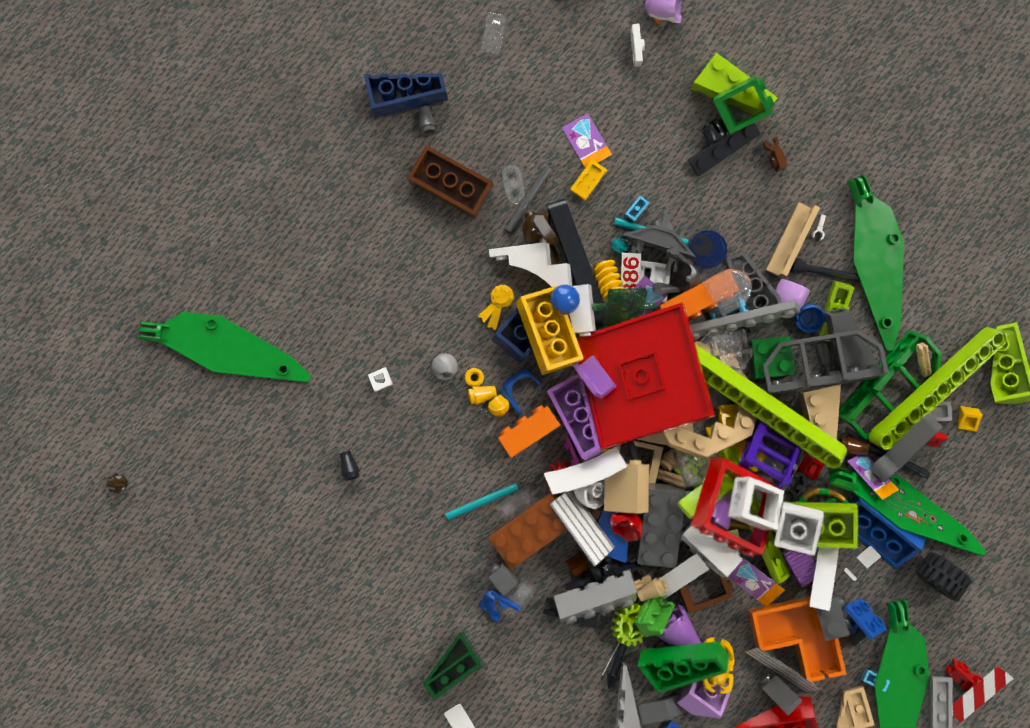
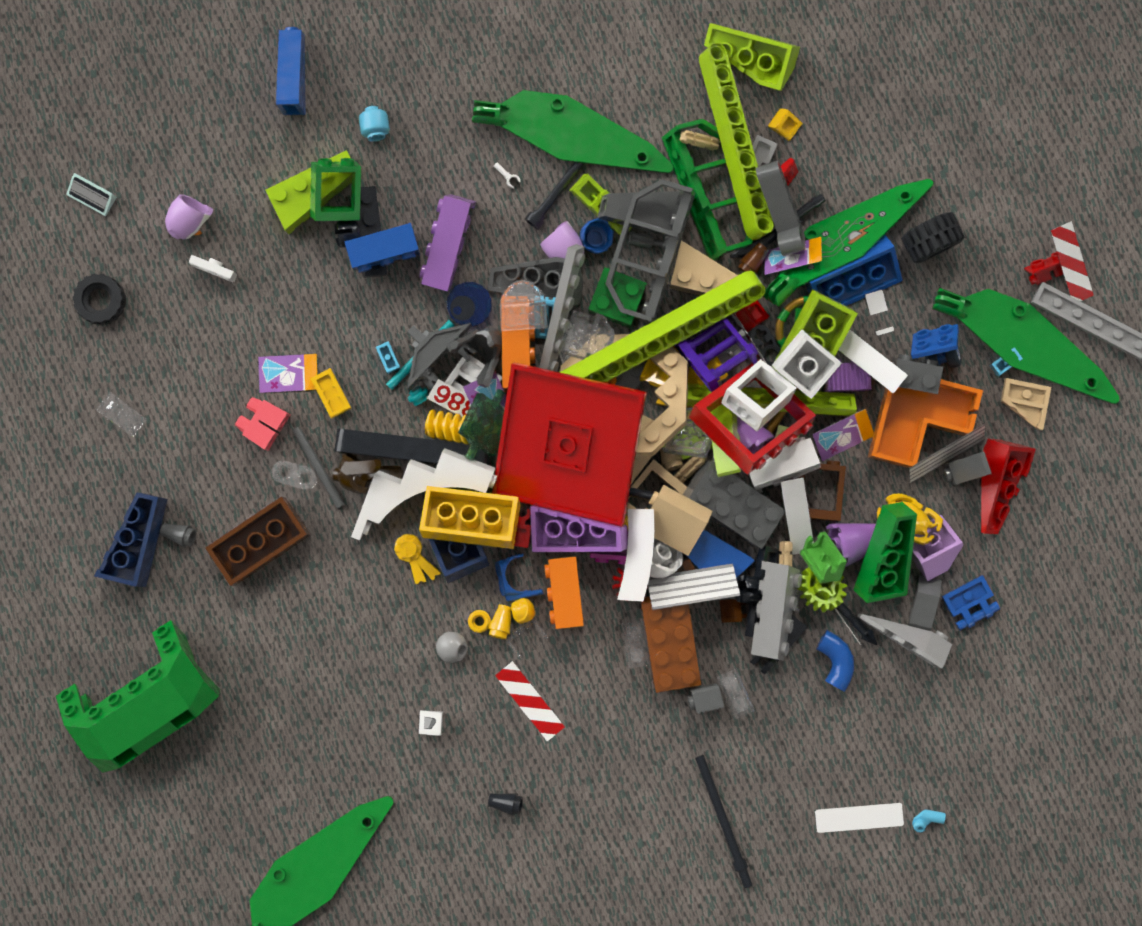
camera: 55 degrees left, 0 degrees up
(284, 160) = (141, 710): none -> green wedge
(391, 665) = (739, 863): none -> black bar
(433, 445) = (529, 701): none -> sticker
(455, 666) = (773, 795): dark green wedge -> none
(482, 501) = (615, 679): teal bar -> none
(488, 604) = (726, 727): blue helmet -> none
(532, 138) = (255, 430): none -> coral hips
(558, 376) = (523, 531): none -> red plate
(565, 299) = (445, 484): blue hair -> none
(583, 666) = (841, 660): none -> blue cylinder
(595, 377) = (543, 494): medium lavender panel -> none
(627, 525) = (716, 539): red hair -> none
(653, 589) = (797, 545): tan cone -> none
(718, 161) = (382, 248): none -> blue wedge
(747, 208) = (446, 242): none -> medium lavender wedge
(777, 157) = (410, 182): reddish brown plate -> none
(792, 240) = (504, 211): tan fence -> none
(807, 108) = (374, 123): none -> medium azure head
(813, 27) = (291, 72): none -> blue slope

